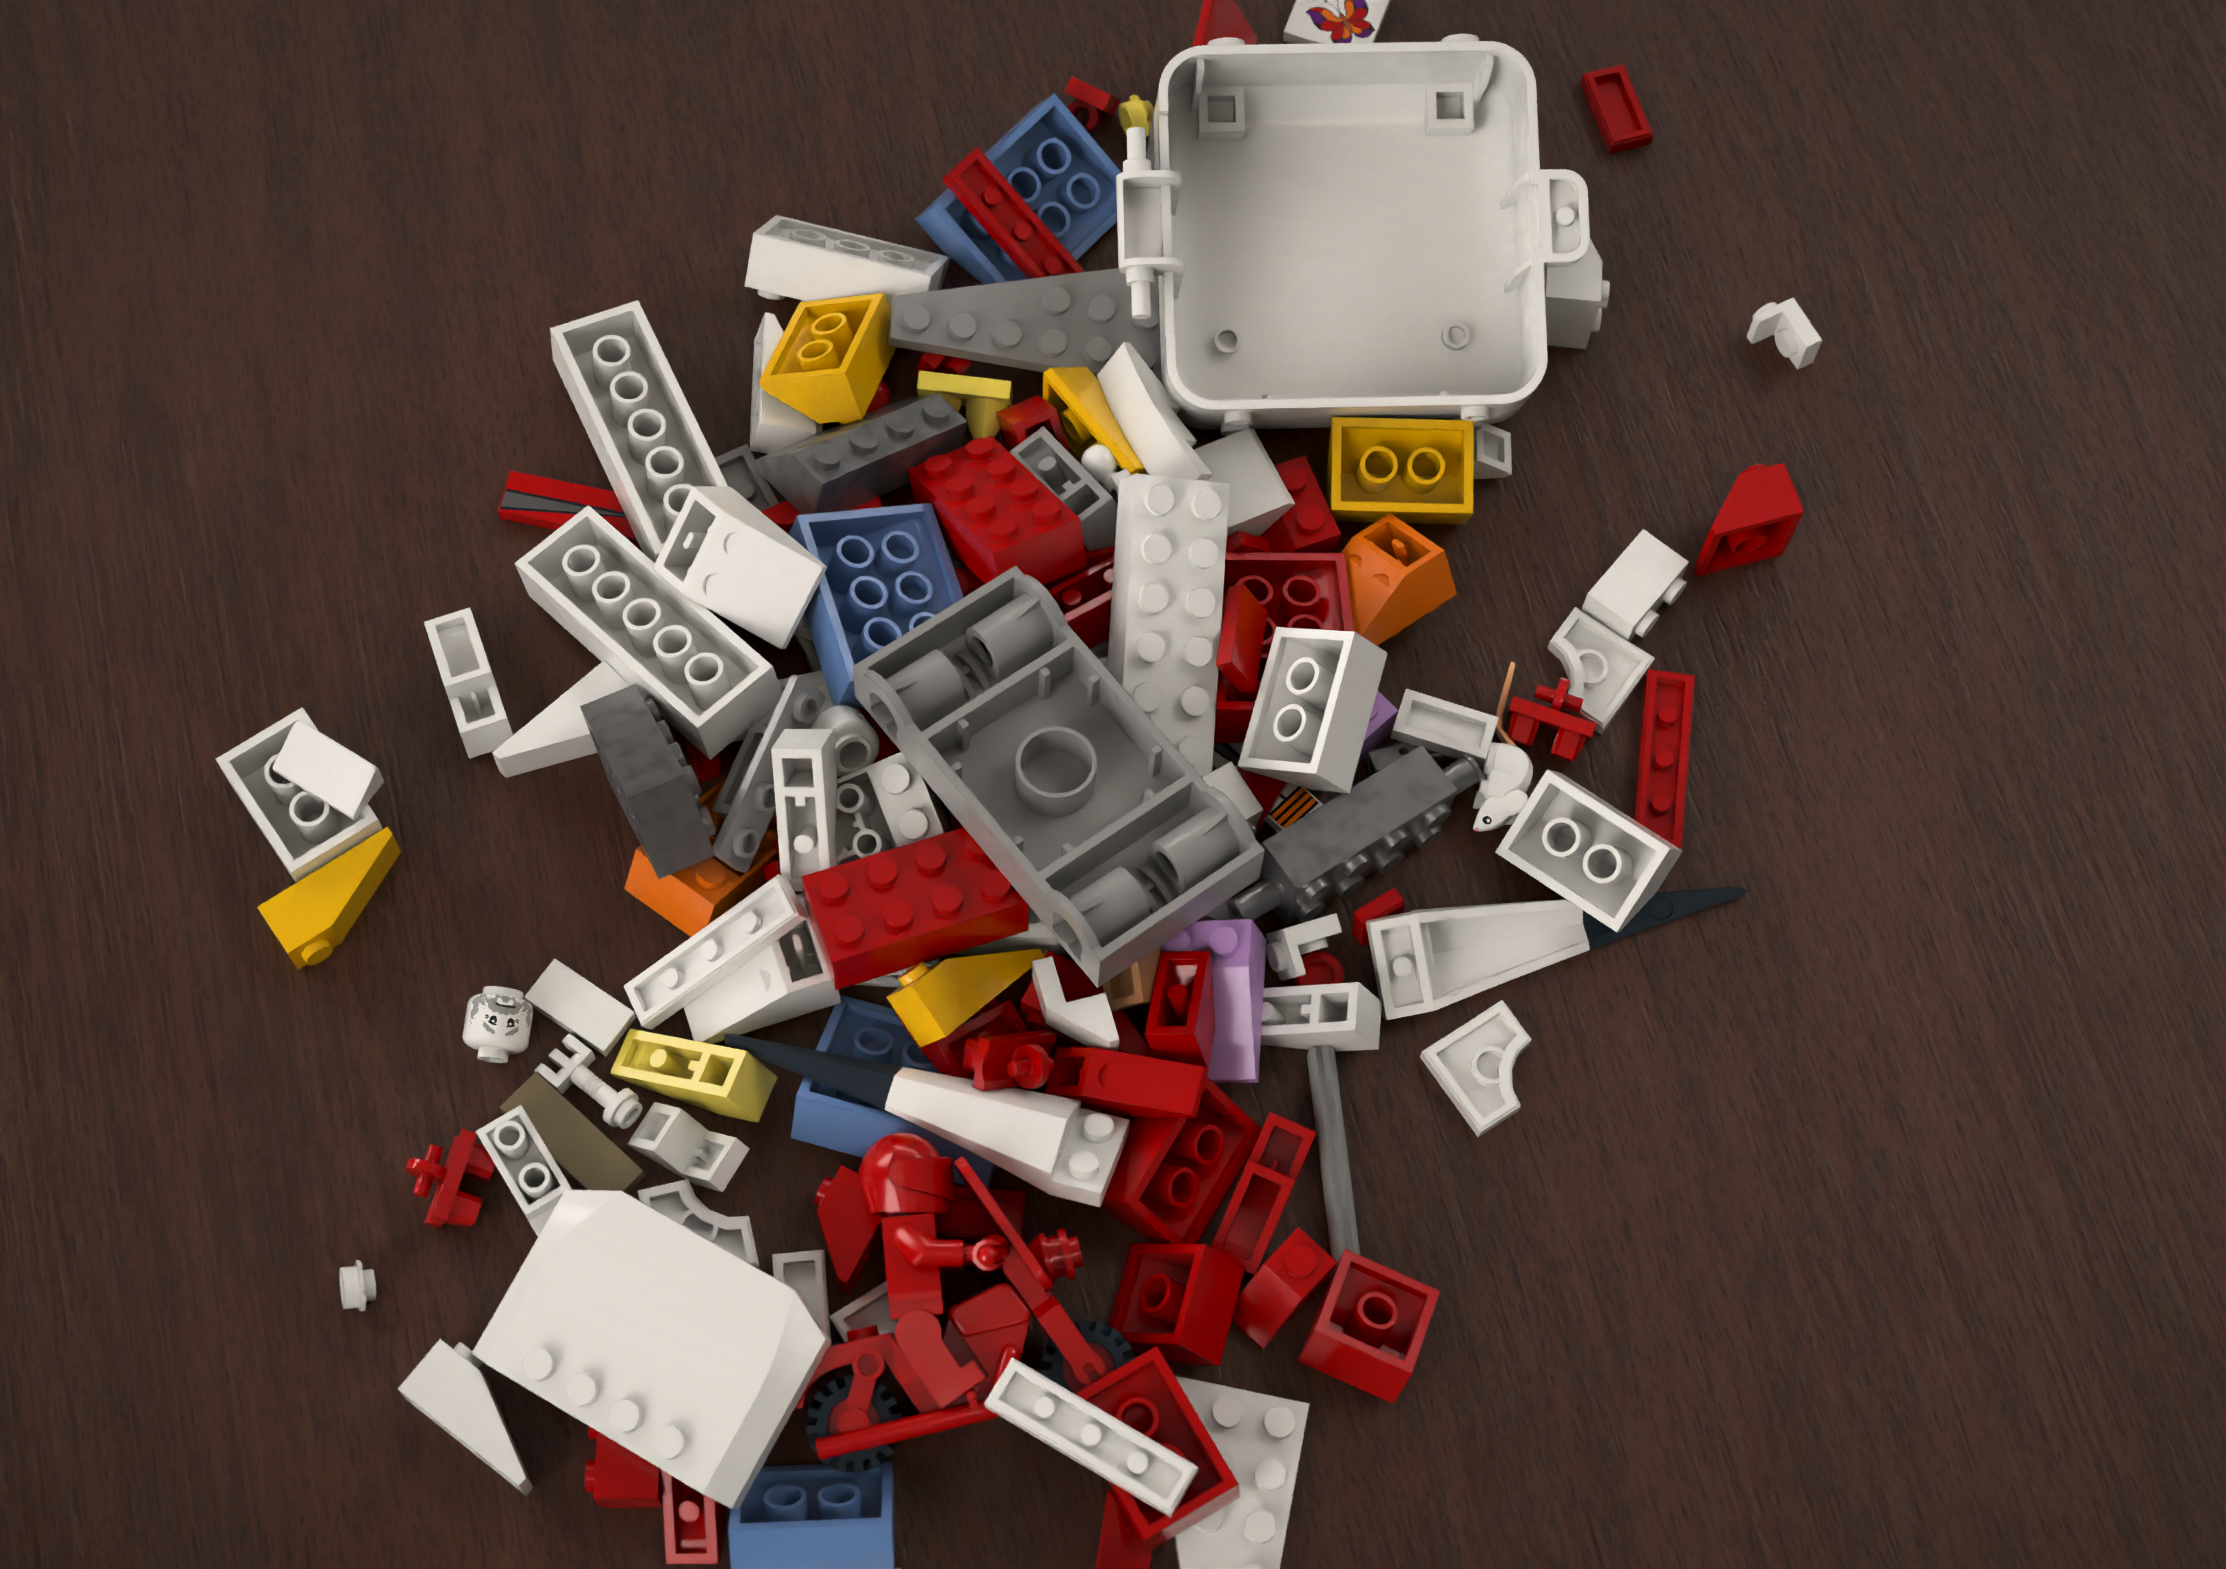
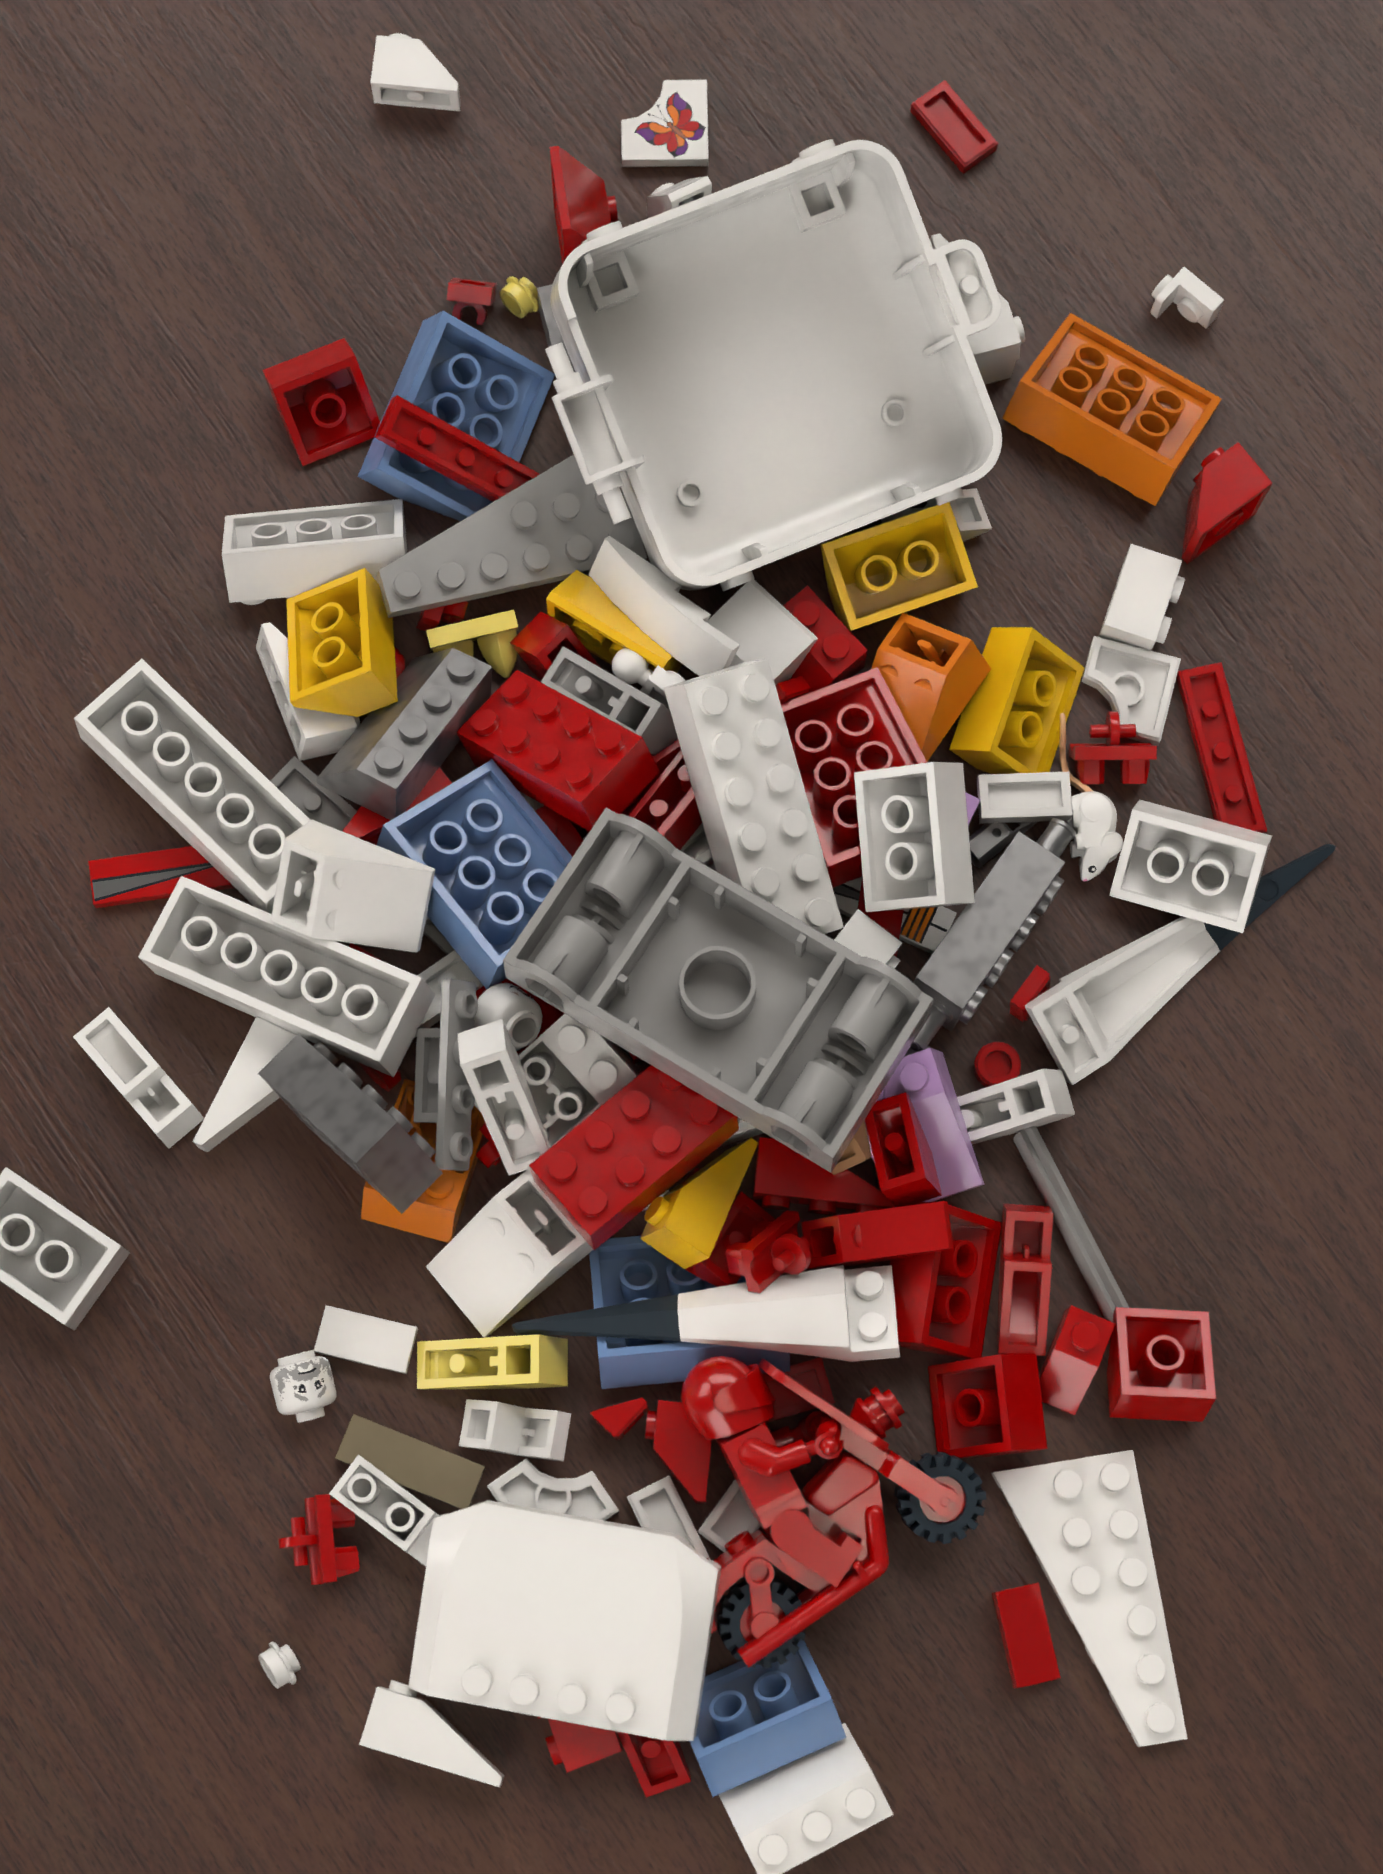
camera: 20 degrees left, 10 degrees up
(325, 904) = (101, 1336): yellow slope -> none
(327, 770) = (57, 1220): white slope -> none
(620, 1107) = (441, 1417): white hinge -> none
(715, 952) = (470, 1250): white tile -> none
(799, 1172) = (620, 1418): none -> red slope
(909, 144) = (323, 401): none -> red slope
(1084, 1019) = (822, 1193): white slope -> none
(1091, 1437) = (974, 1563): white tile -> none
(1153, 1403) = (1024, 1547): red slope -> none
(1241, 638) = (825, 792): red tile -> none
(1291, 942) = (969, 1040): white bracket -> none
(1472, 638) = (1018, 706): none -> yellow slope
(1477, 1066) = (1163, 1094): white tile -> none
(1672, 406) = (1111, 408): none -> orange slope

